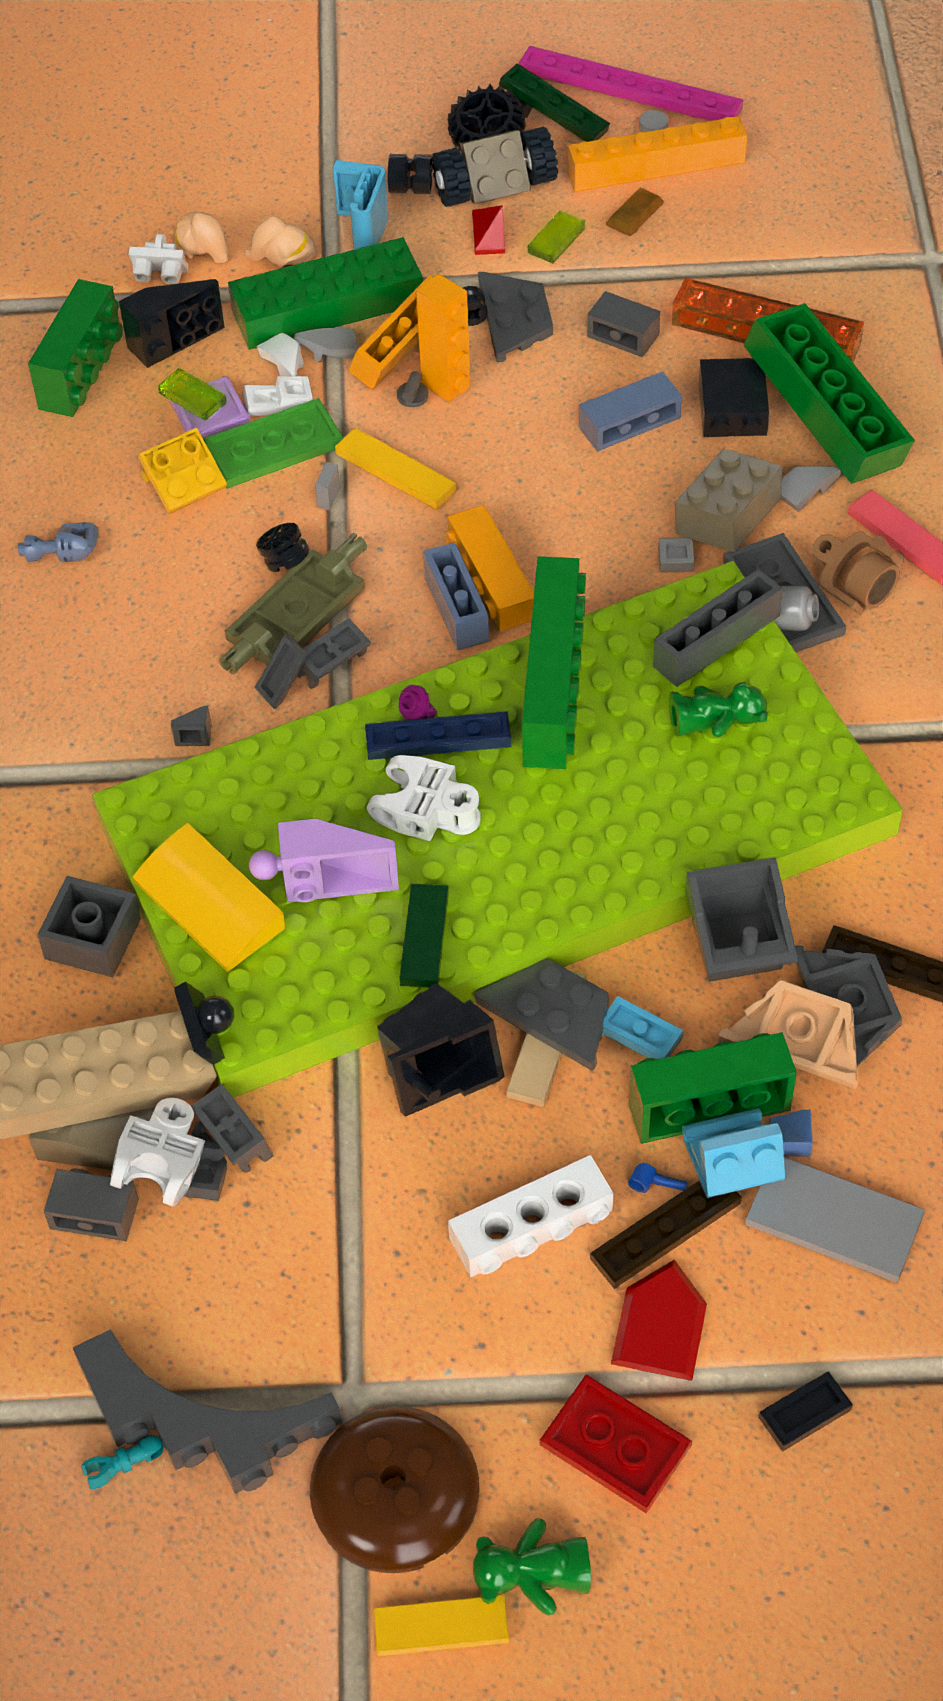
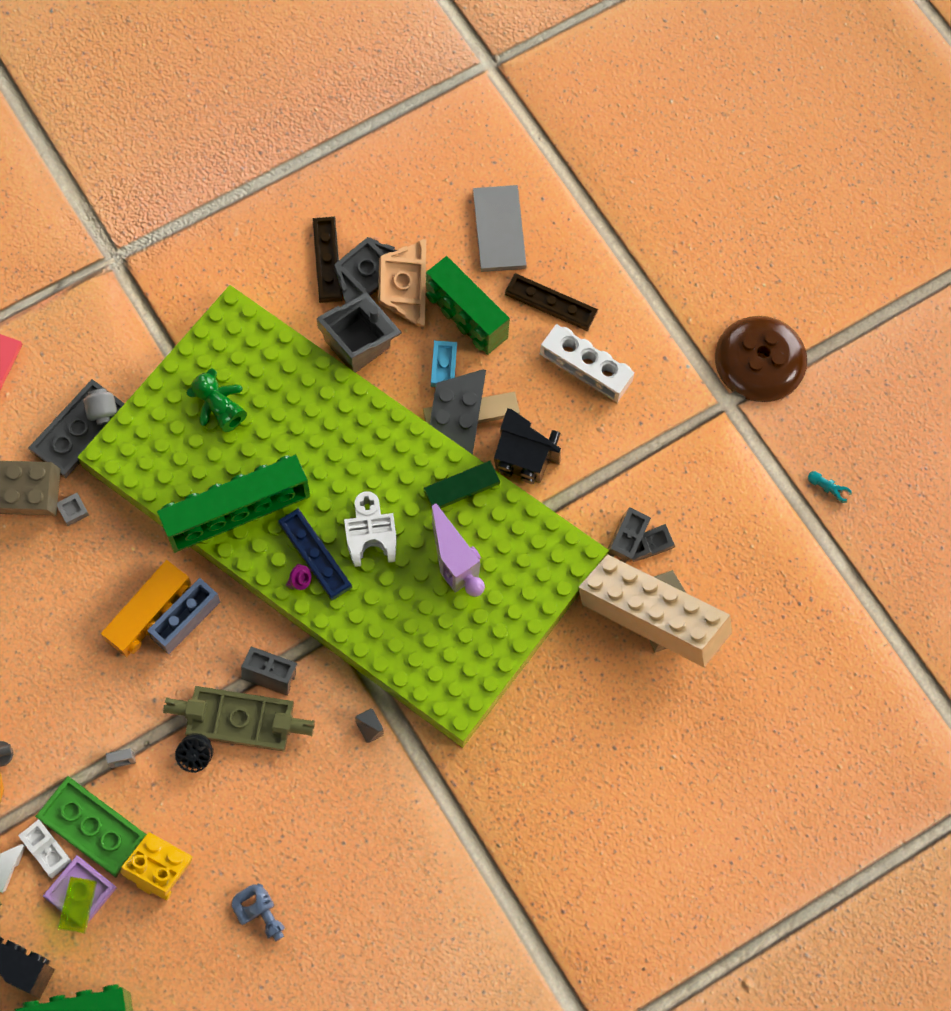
camera: 125 degrees left, 15 degrees up
(89, 926) = (550, 689): dark grey brick -> none
(90, 1205) = (712, 581): dark grey brick -> none
(159, 1150) = (674, 560): white piece -> none
(191, 1431) = (798, 460): dark grey arch -> none
(204, 1020) = (587, 567): black tile -> none
(209, 897) = (505, 617): yellow slope -> none
(281, 670) = (301, 688): dark grey tile -> none
(396, 468) = (77, 727): yellow tile -> none
(440, 1626) = (811, 304): yellow tile -> none
(532, 1567) = (763, 273): green piece -> none
(616, 1443) = (678, 273): red tile -> none
(646, 1174) = (530, 324): blue hand -> none
(661, 1324) = (605, 281): red tile -> none
(717, 627) = (154, 425): dark grey brick -> none
(735, 1152) = (500, 276): medium azure piece -> none
(796, 1132) = (466, 262): medium blue slope -> none
(805, 1411) = (610, 199): black tile -> none
(870, 578) = (46, 375): medium nougat piece -> none

